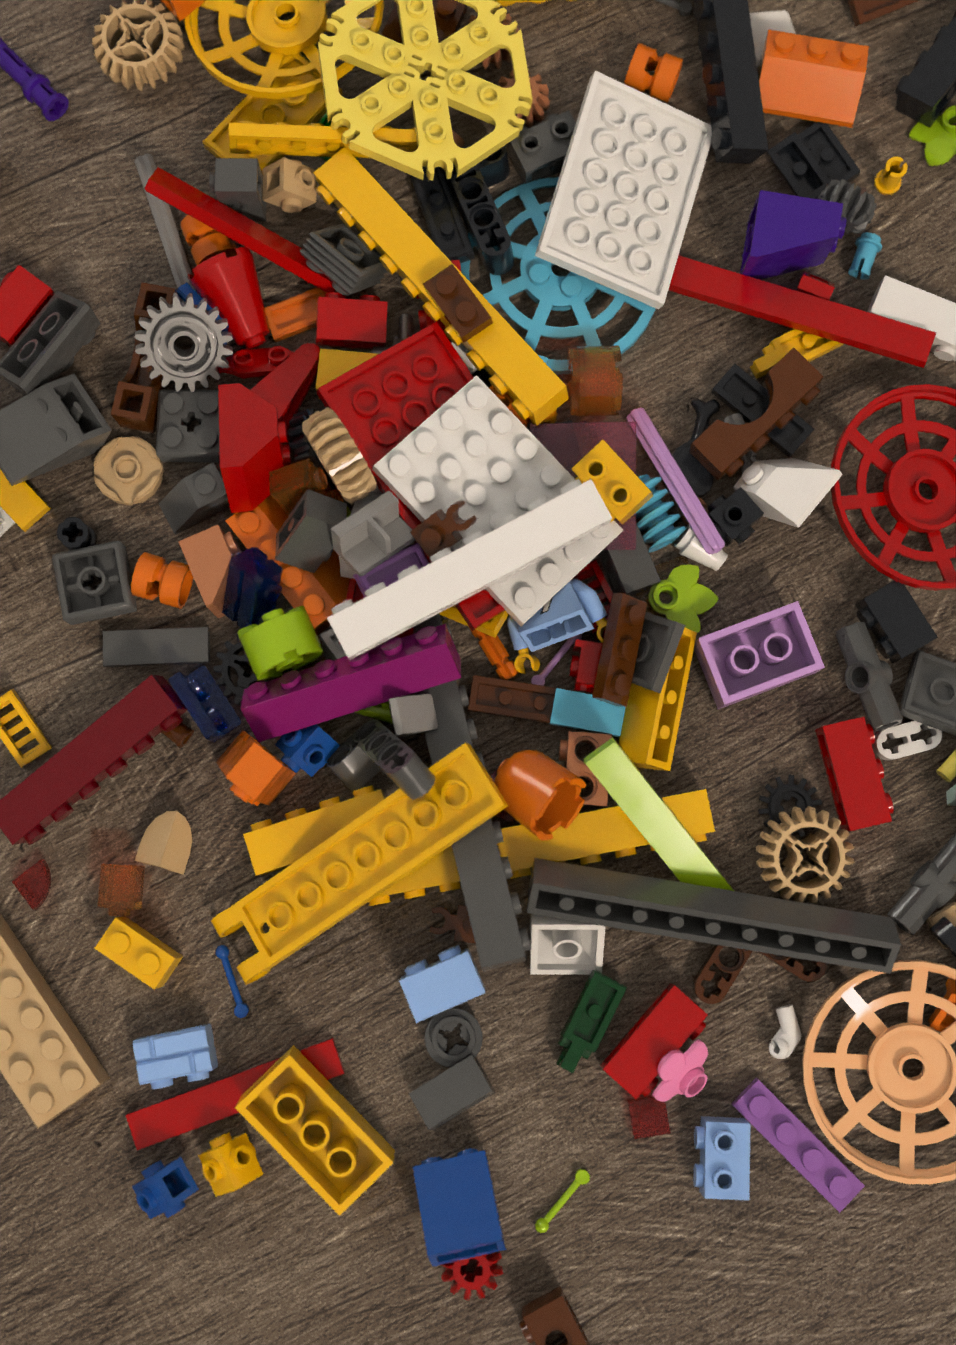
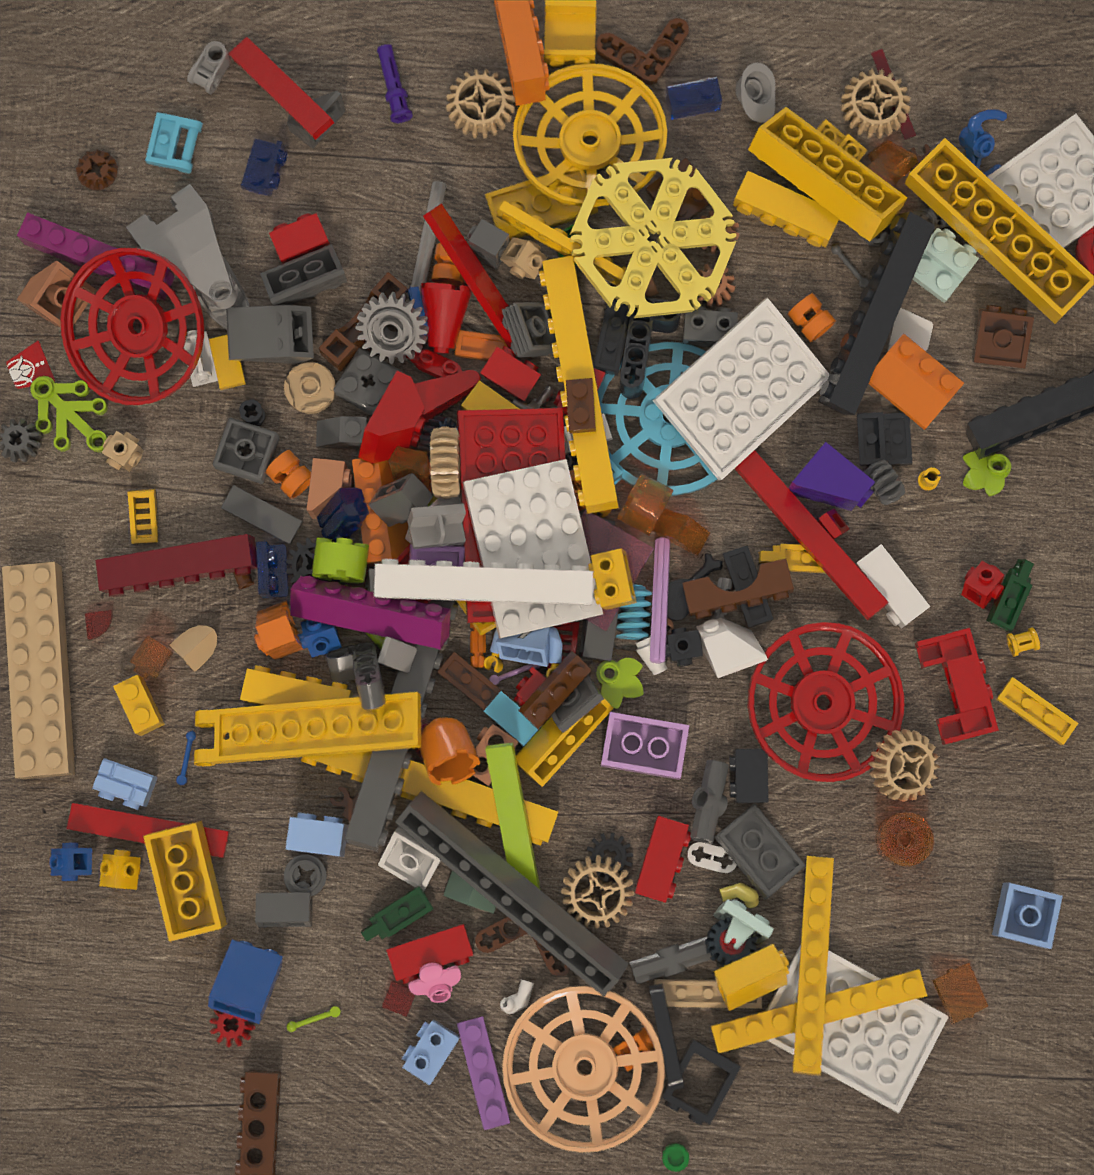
camera: 30 degrees right, 0 degrees up
(441, 529) = (482, 548): reddish brown plate -> none
(647, 947) = (463, 892): none -> sand green slope
(652, 390) = (681, 531): none -> clear orange slope
(865, 254) = (880, 522): medium azure pin -> none

